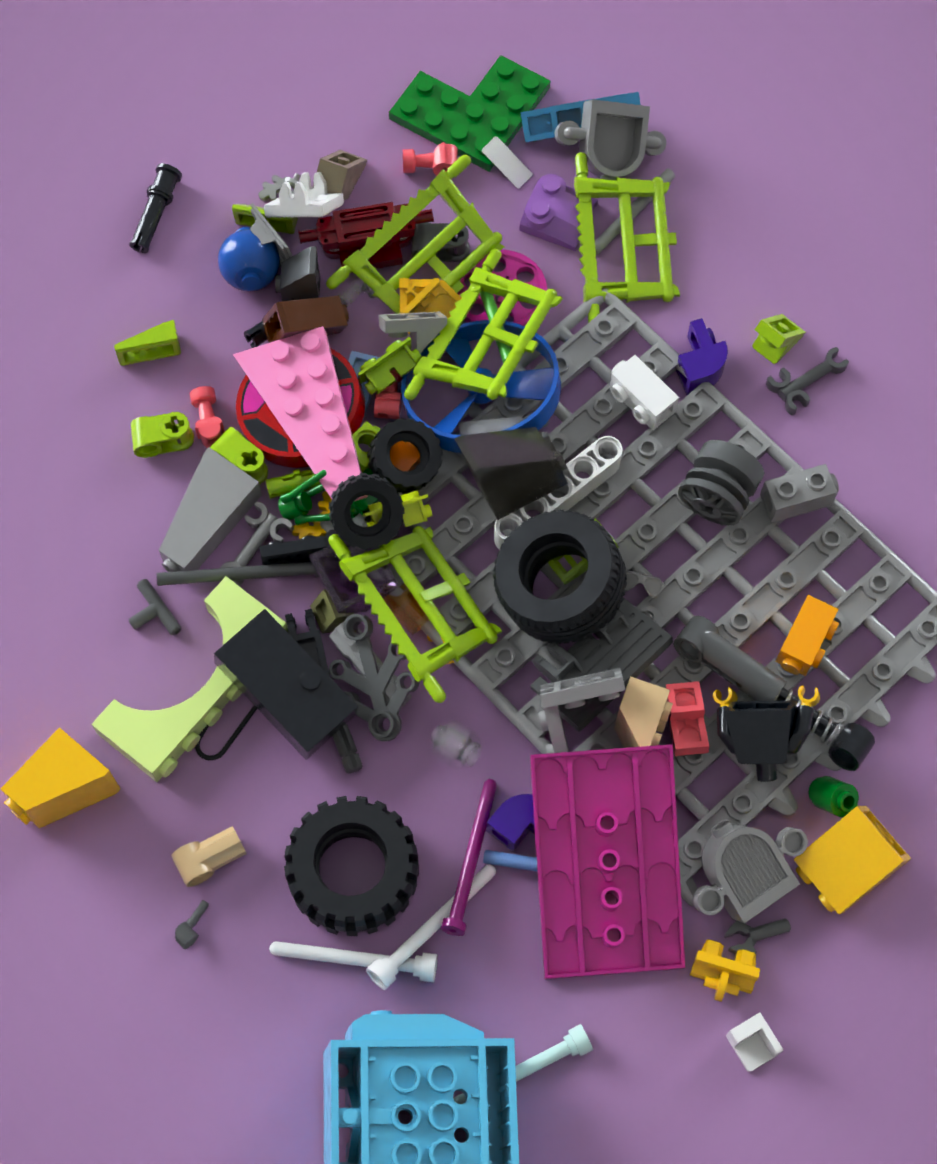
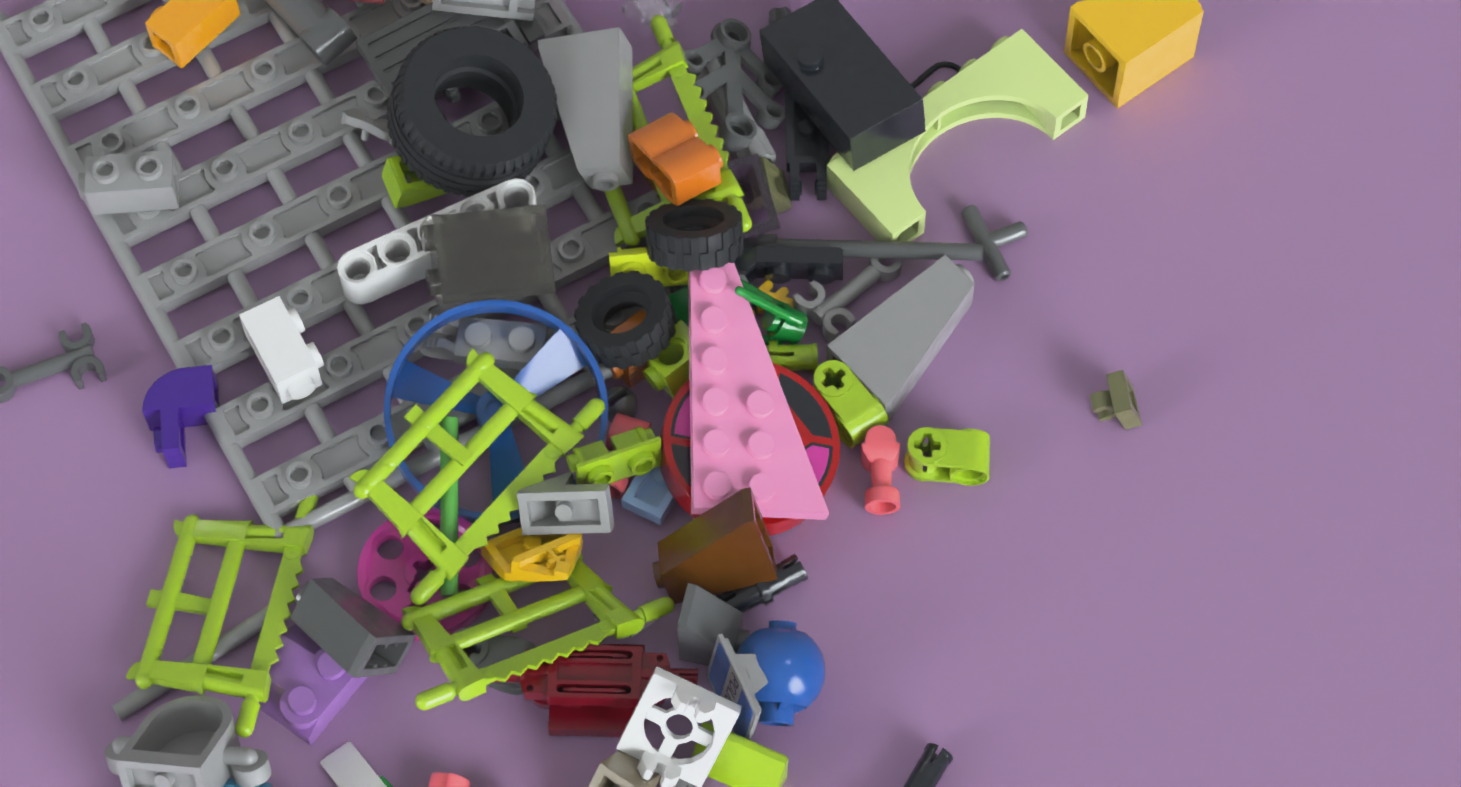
camera: 165 degrees left, 5 degrees down
(44, 496) = (1118, 401): none -> olive tile
(149, 345) = (944, 586): lime slope -> none
(394, 567) = (675, 158): none -> orange brick
(471, 614) = (594, 101): none -> light grey slope
(535, 230) = (351, 628): none -> dark grey slope
(721, 482) = (227, 194): dark grey wheel -> none
(776, 337) = (64, 422): lime slope -> none

